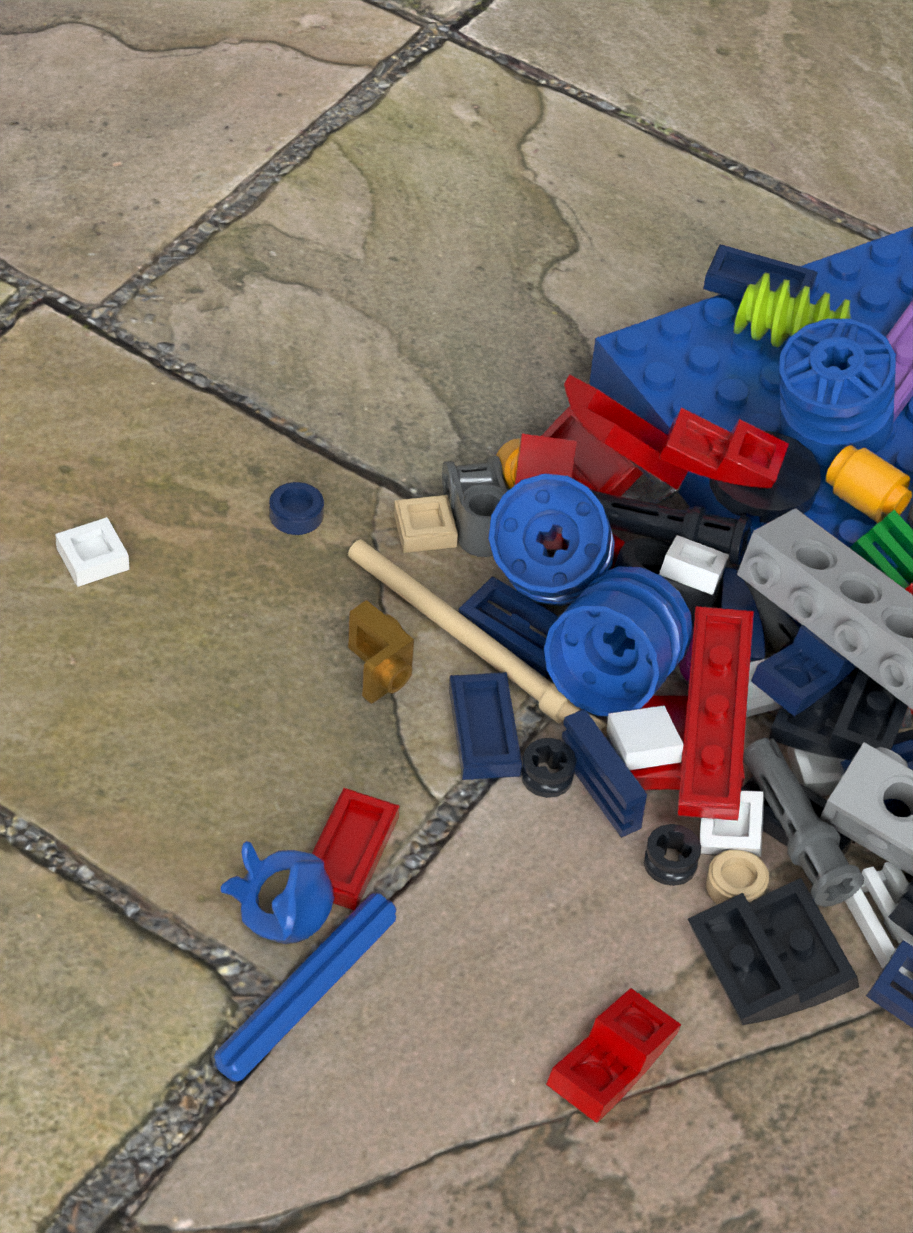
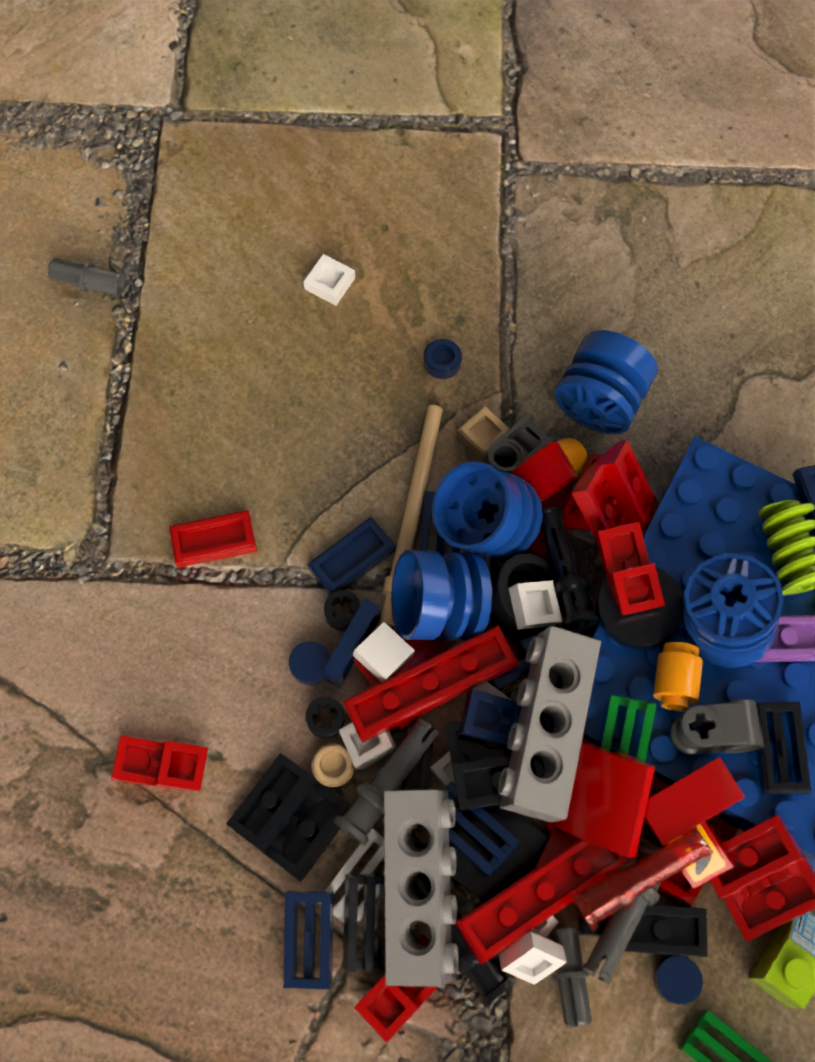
camera: 60 degrees right, 20 degrees up
(298, 909) = (145, 535): blue piece -> none
(304, 987) = (104, 573): blue axle -> none
(383, 648) = (365, 464): pearl gold bracket -> none
(469, 372) = (606, 382): none -> blue wheel
(592, 834) = (308, 662): none -> dark blue tile

